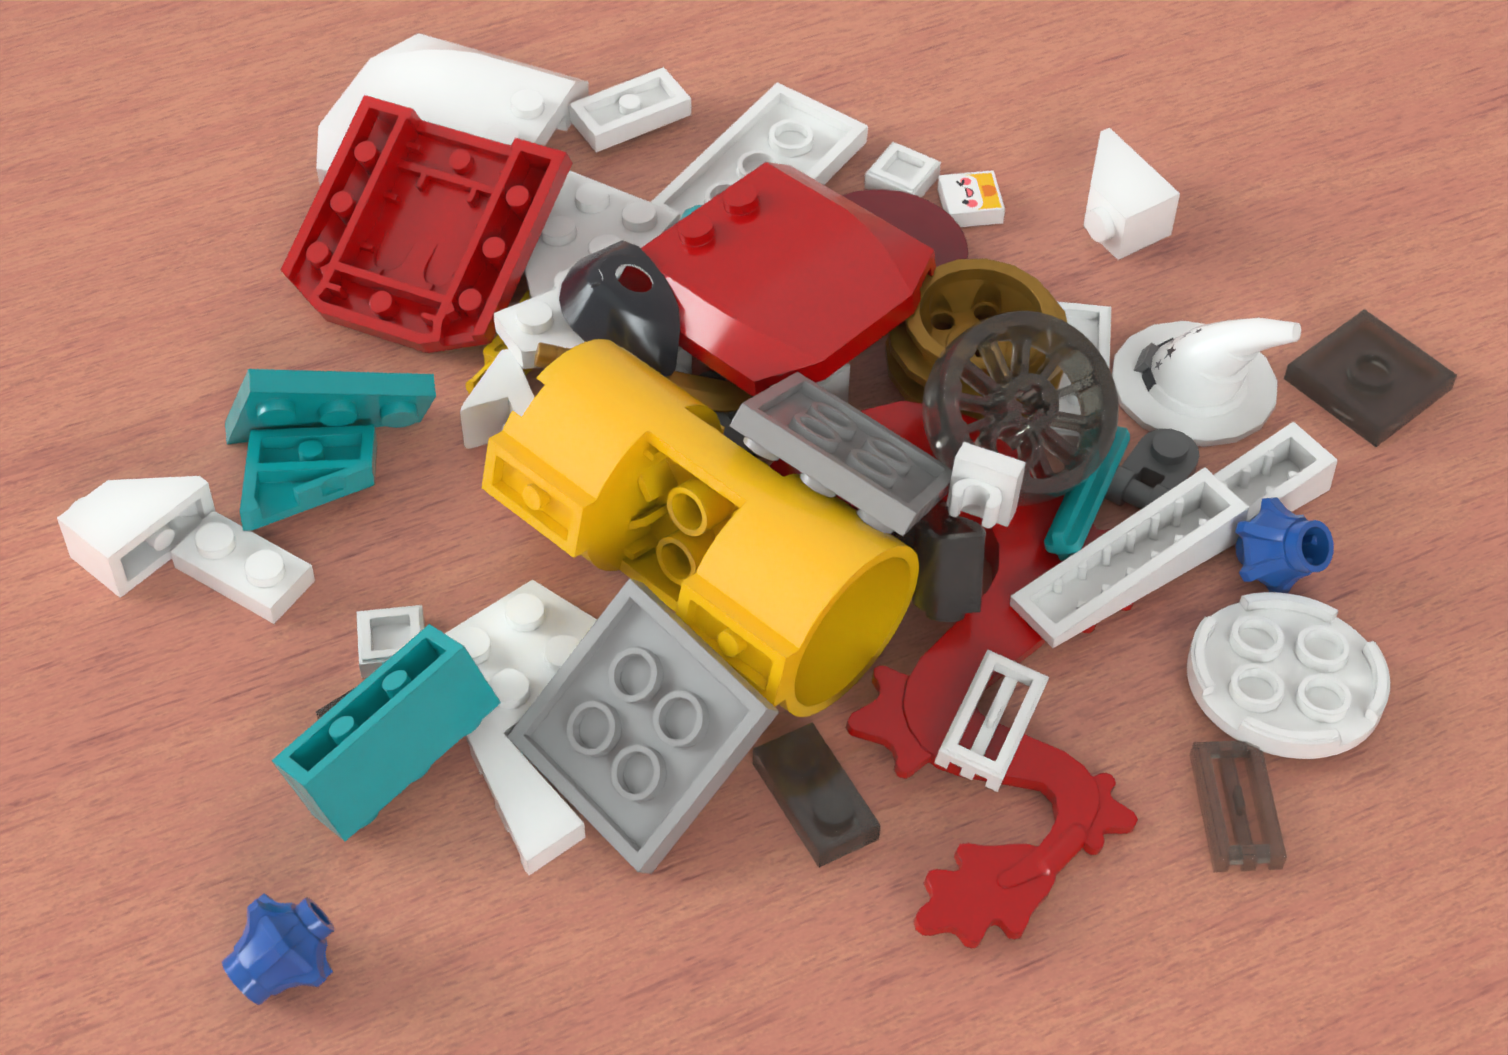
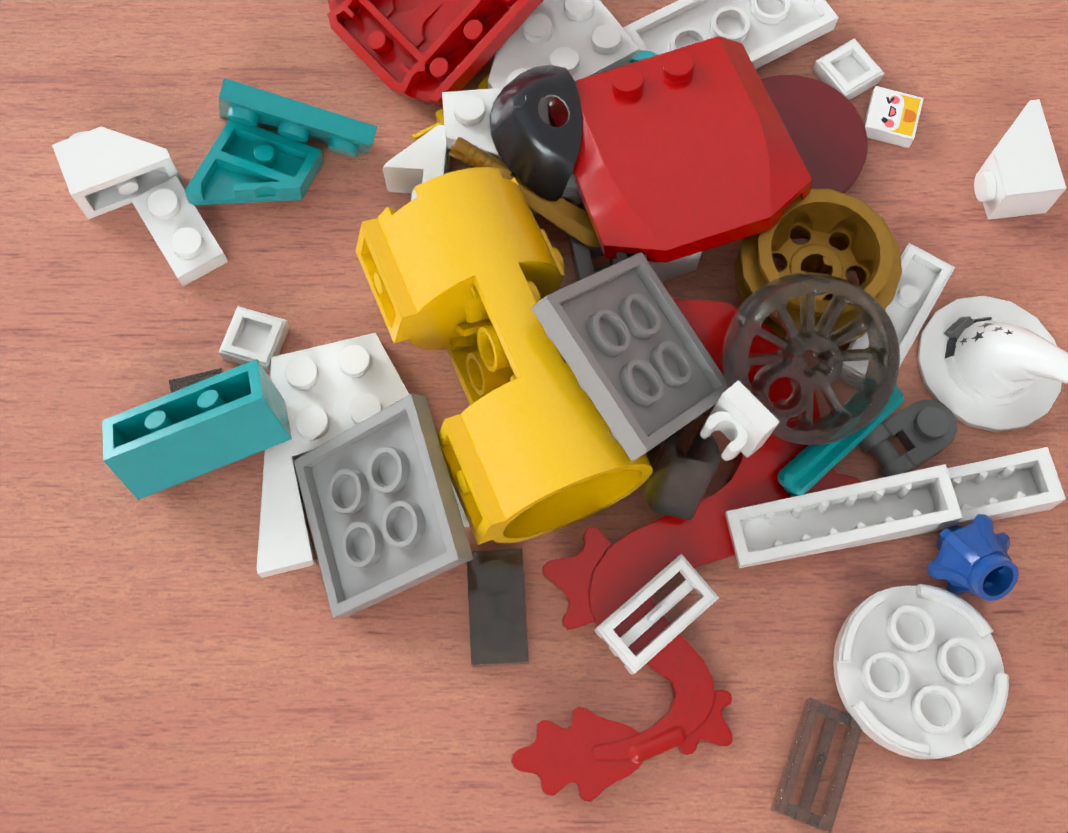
camera: 25 degrees right, 20 degrees up
(280, 948) = (49, 571): blue rock -> none

